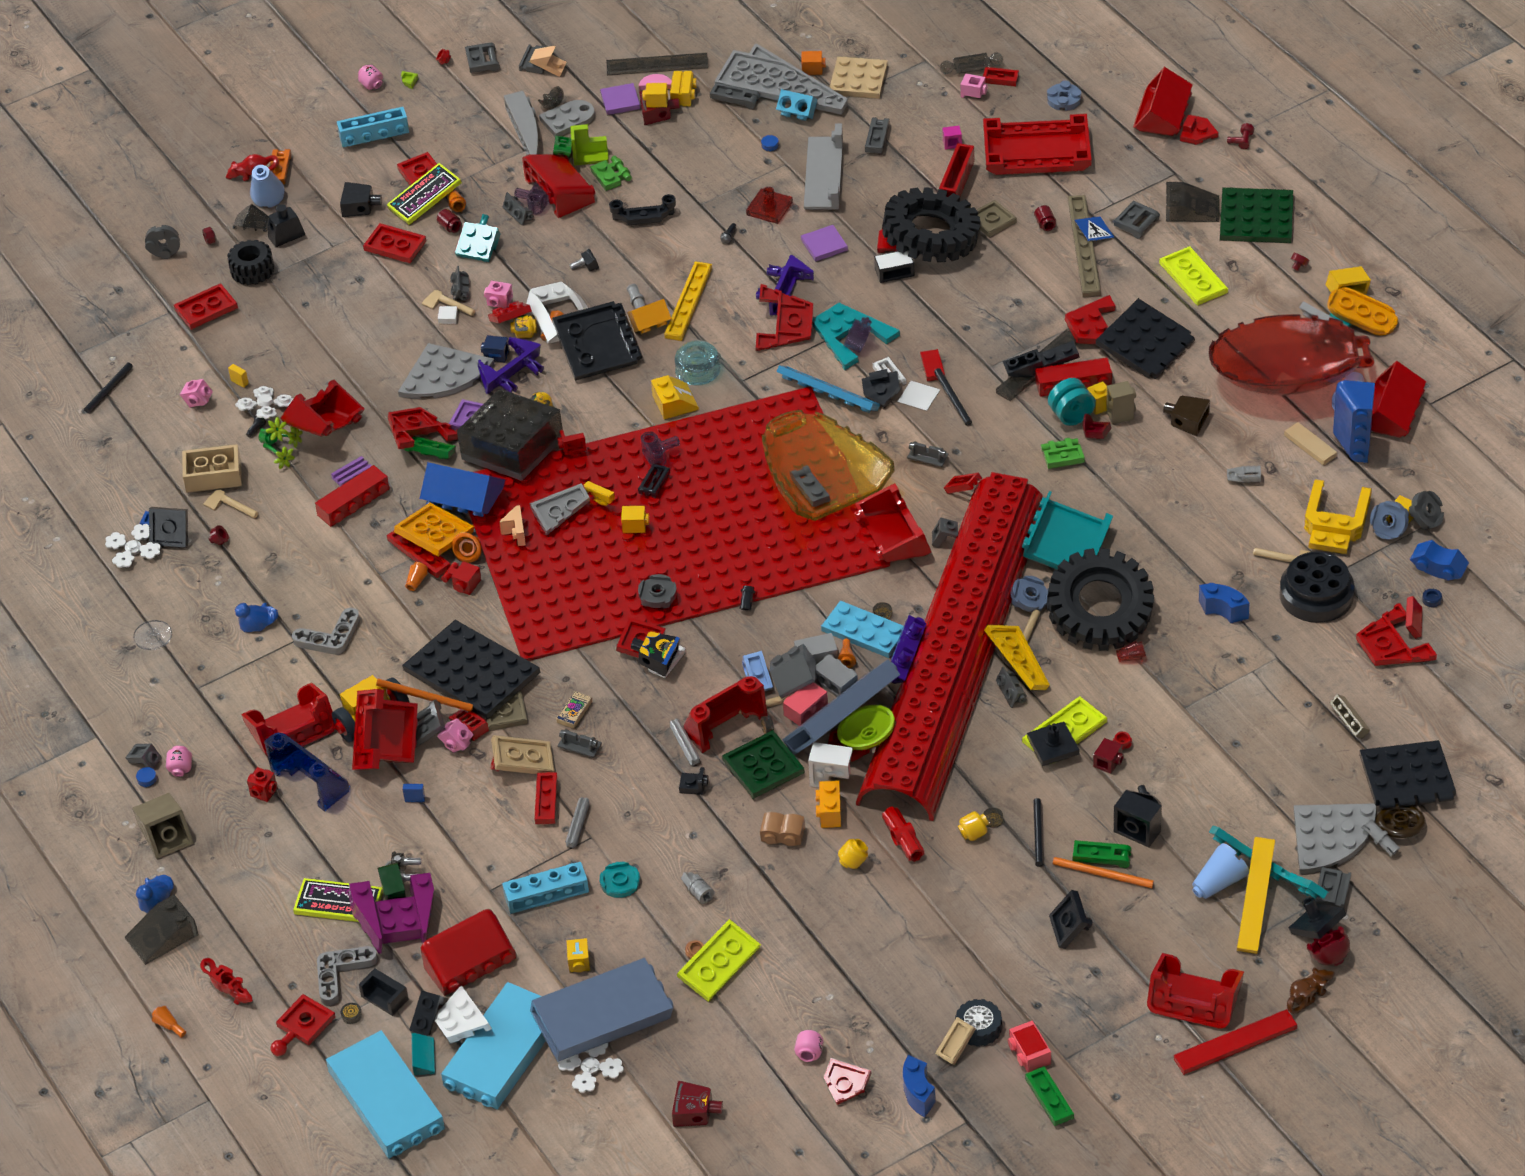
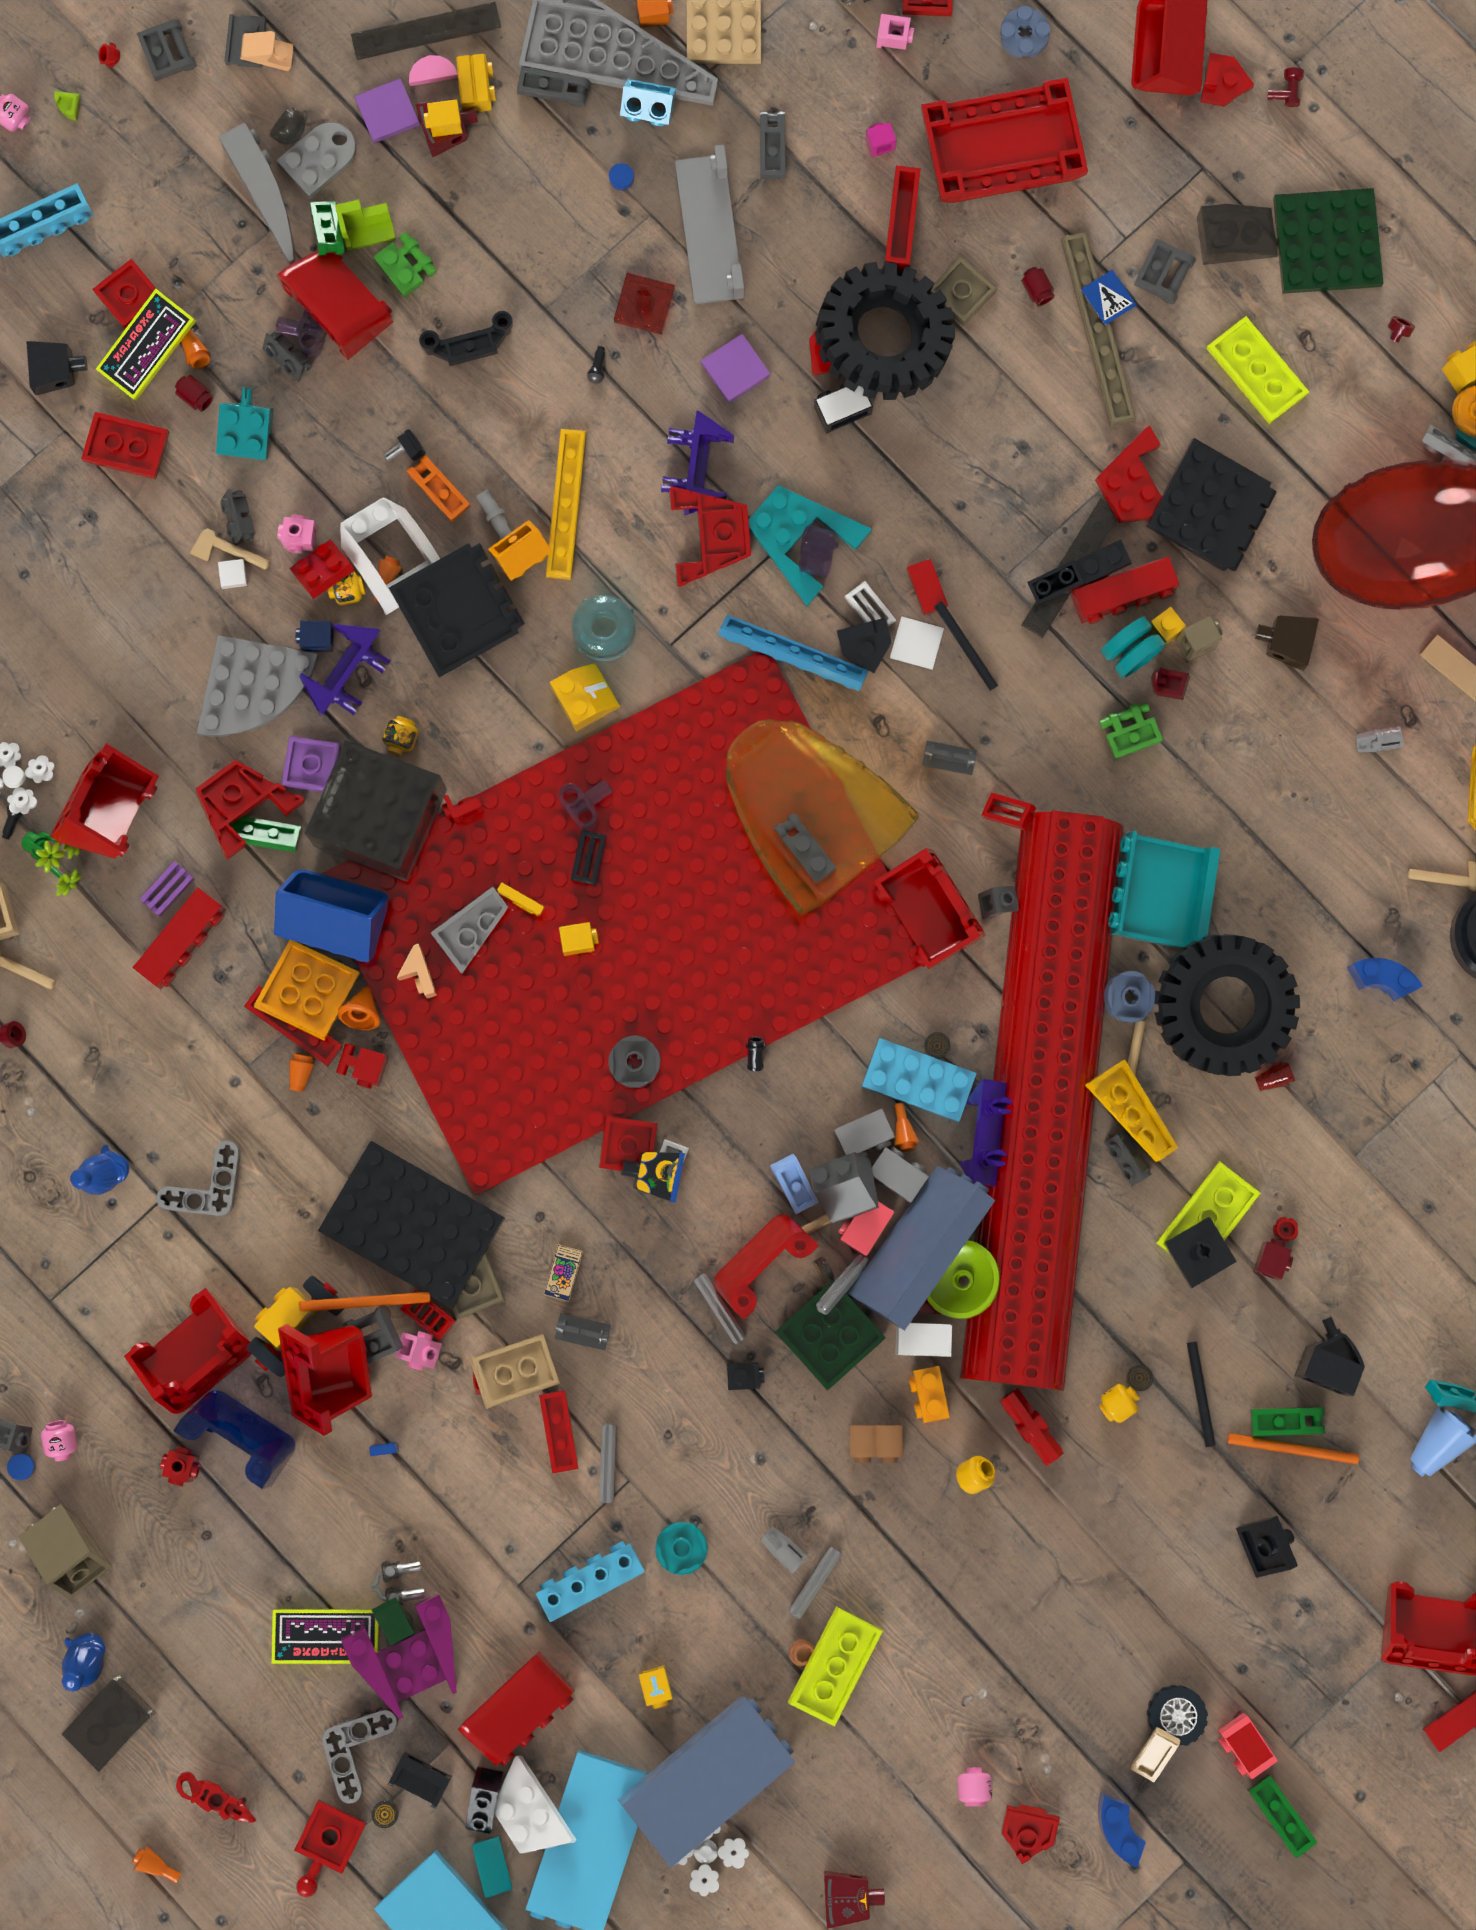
camera: 15 degrees left, 35 degrees up
(602, 283) = (439, 489): none -> orange plate
(716, 910) = (815, 1582): none -> light grey axle
(777, 730) = (842, 1284): none -> light grey axle

